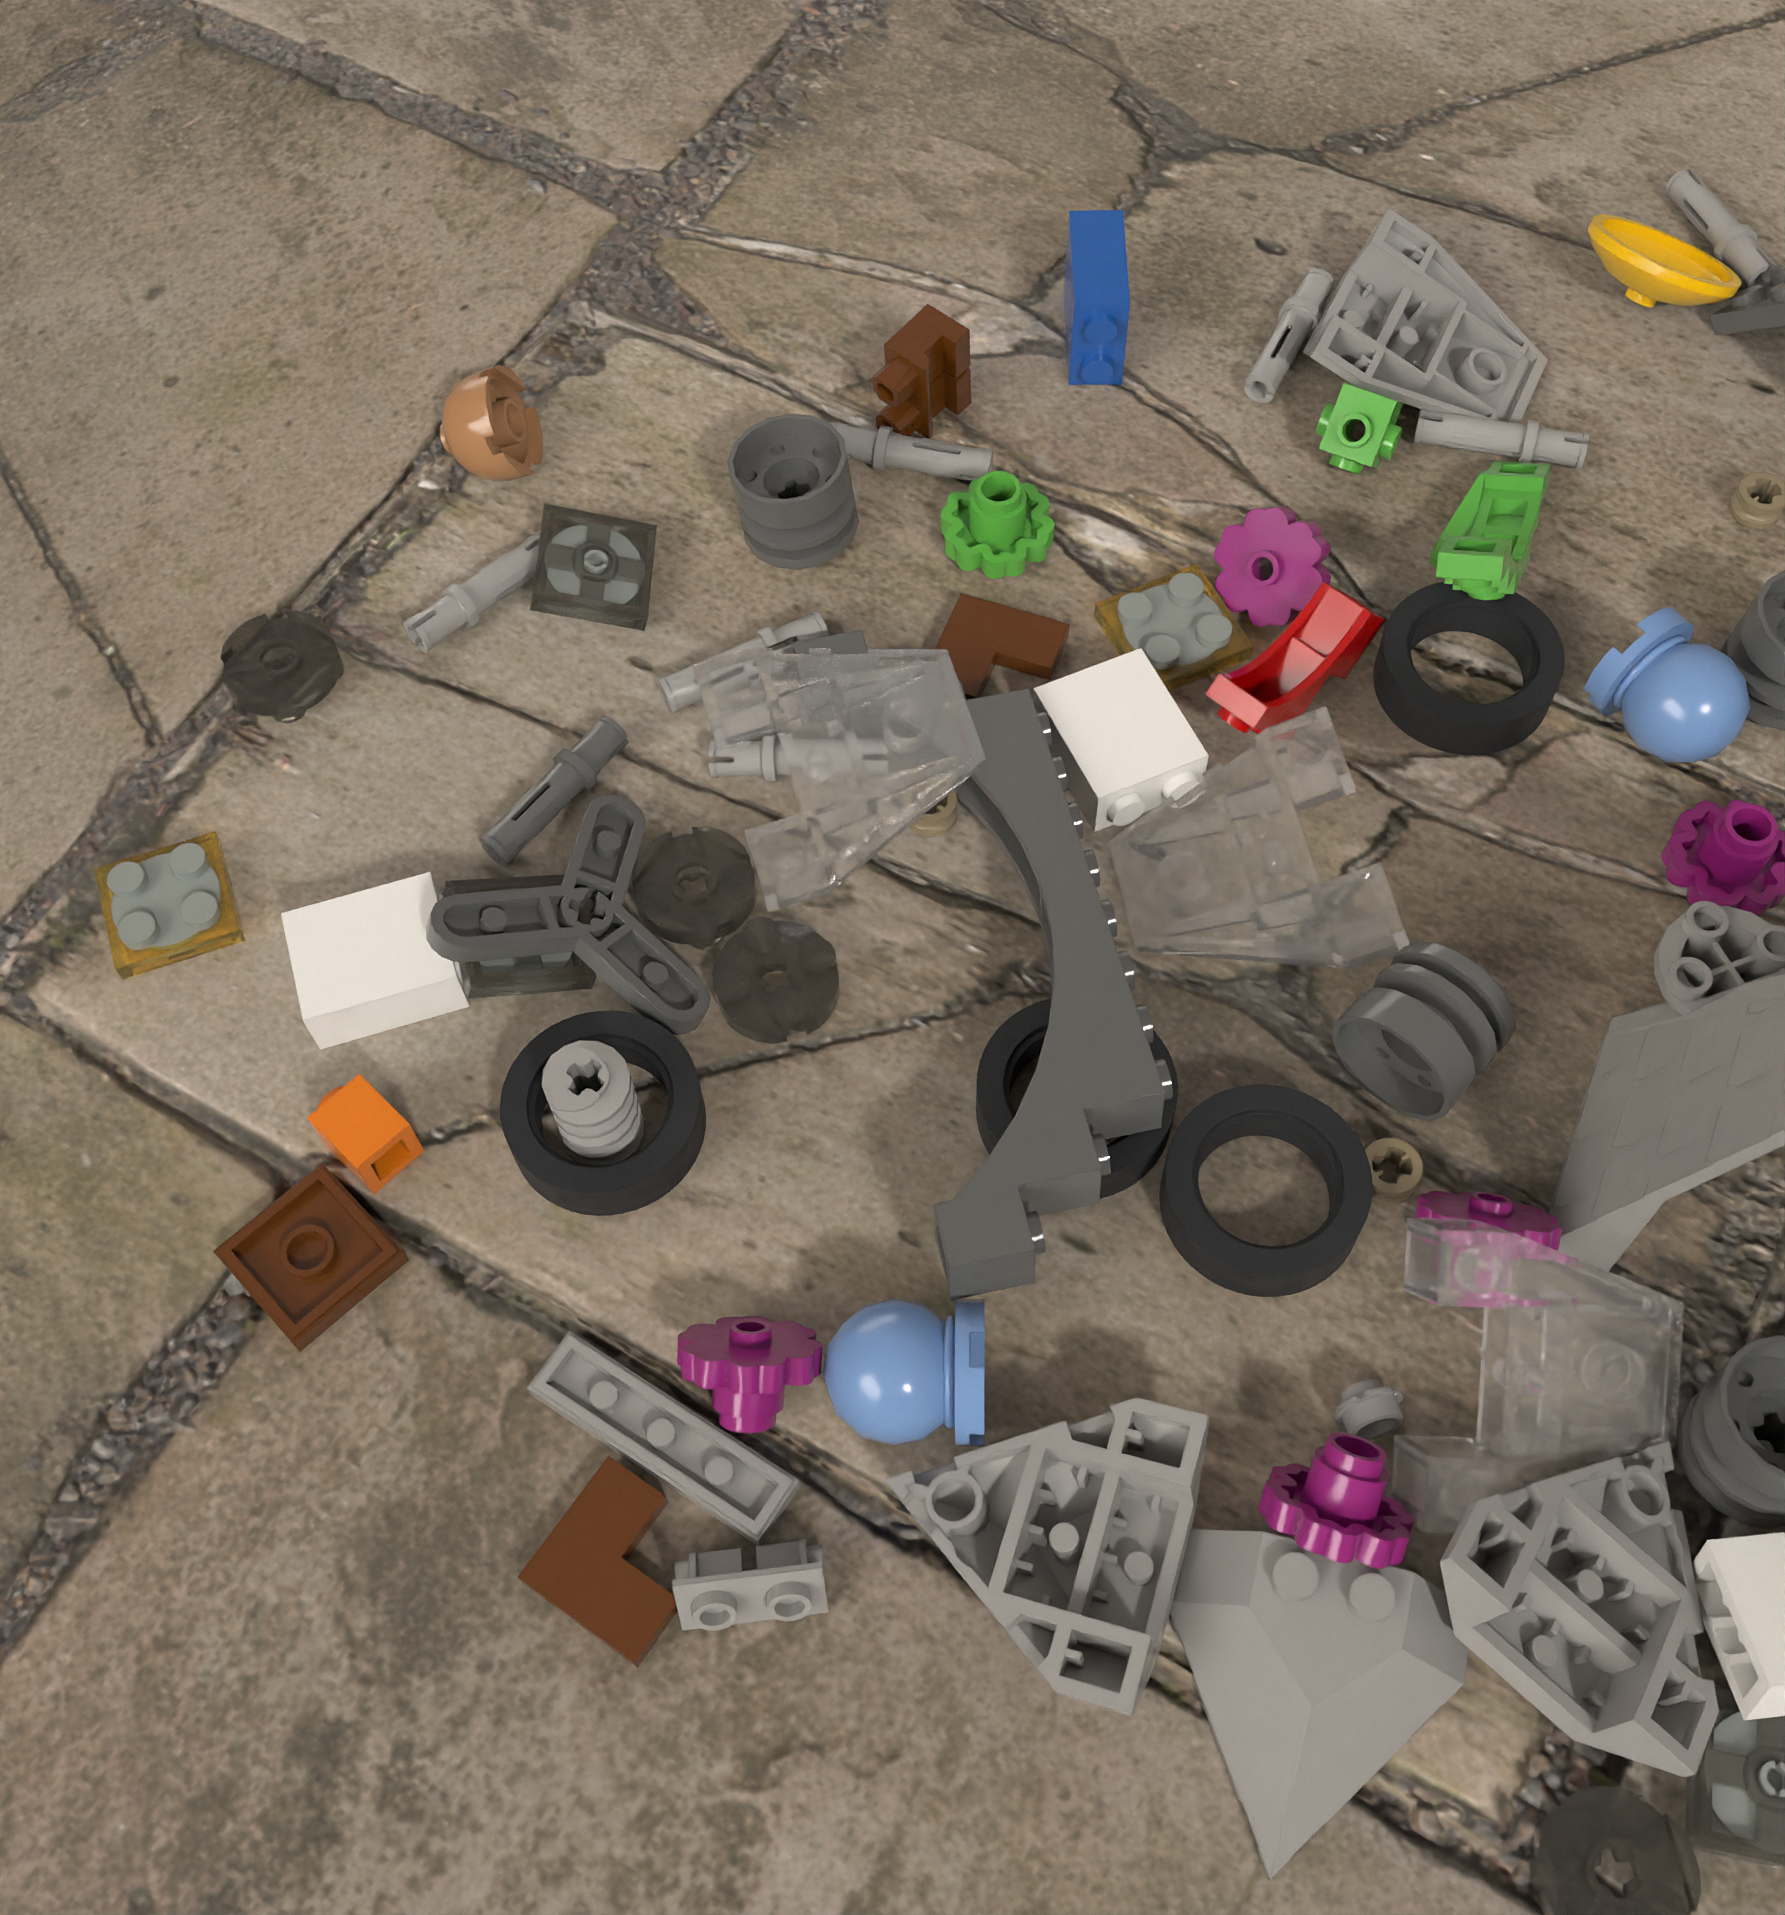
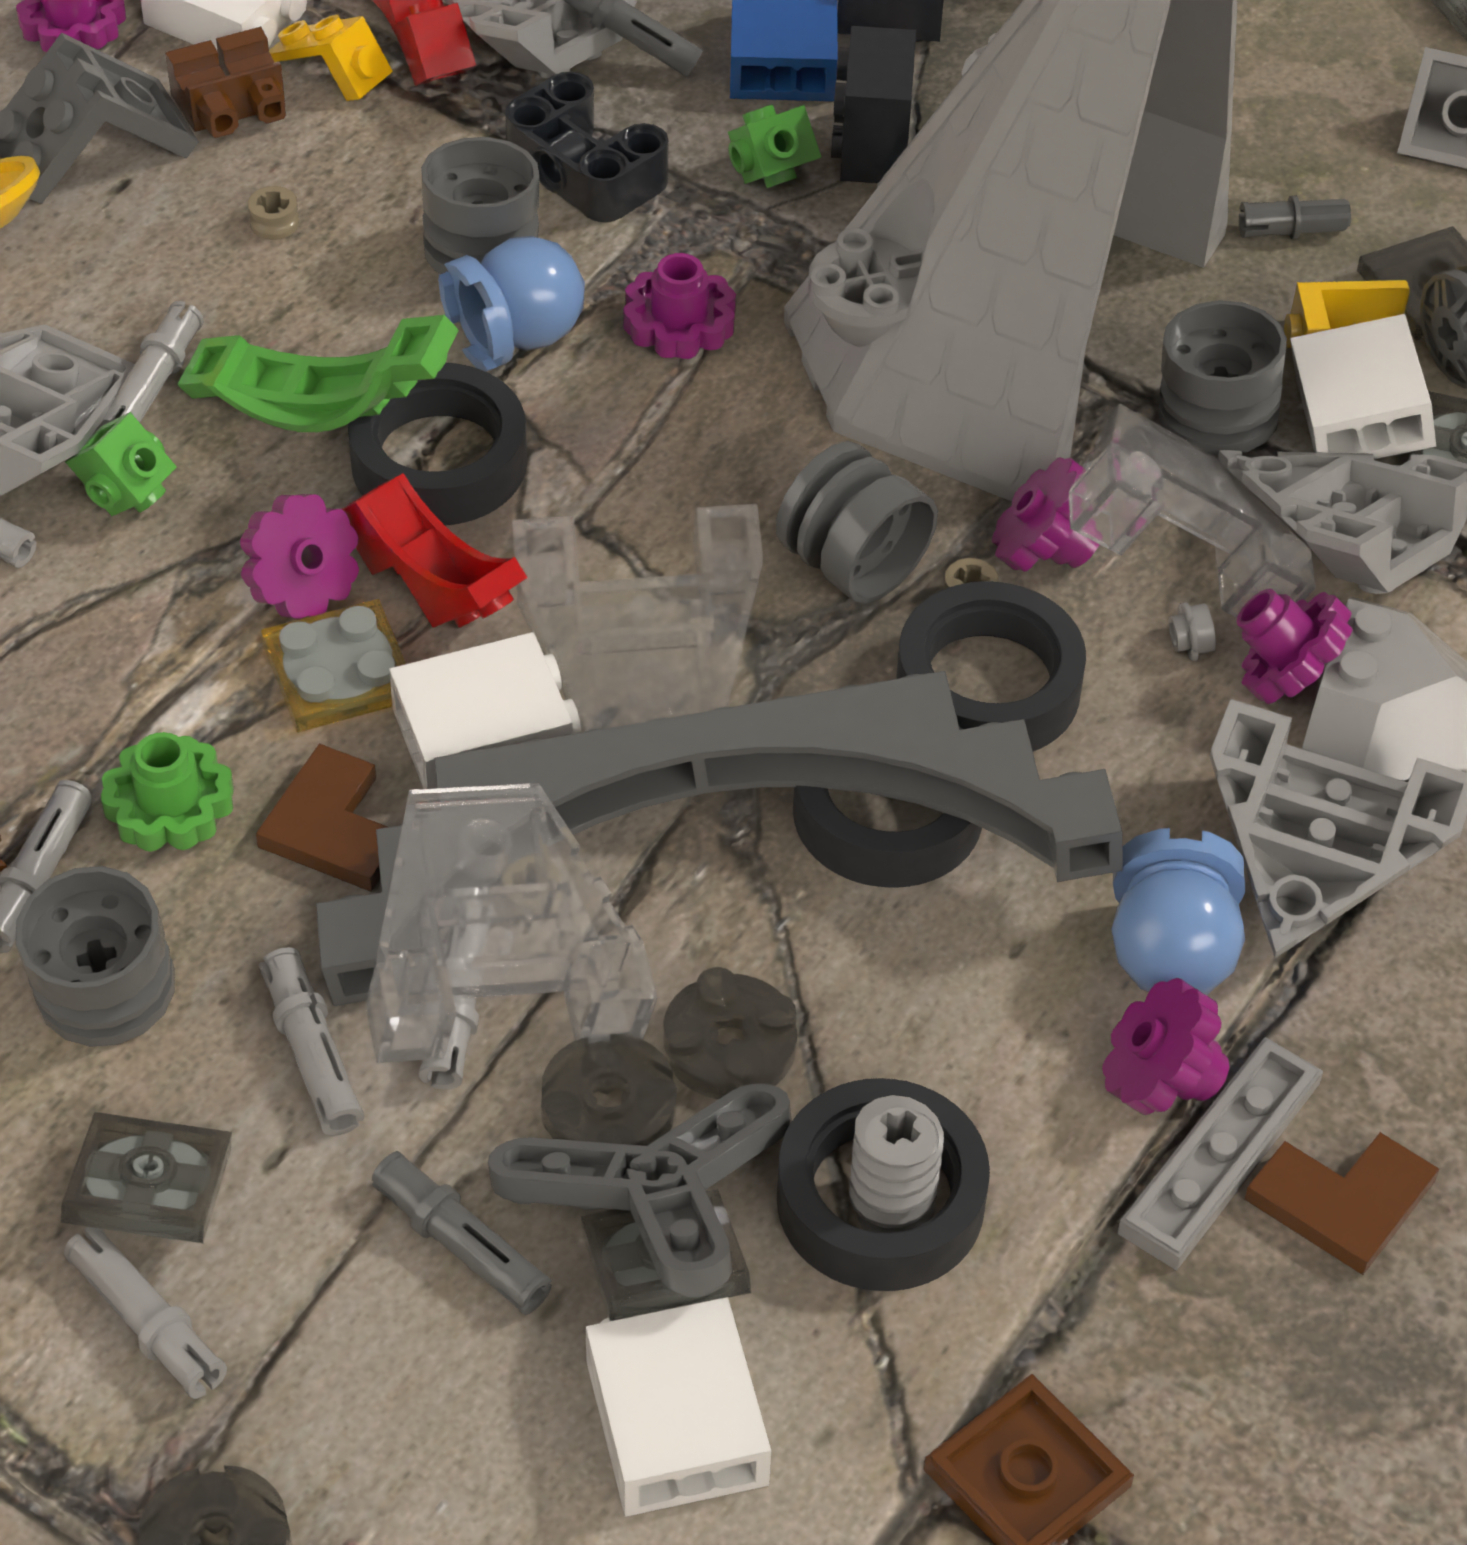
camera: 90 degrees left, 10 degrees down
(365, 1133) = (897, 1407): orange brick -> none
(717, 1593) = (1370, 1100): light grey hinge -> none

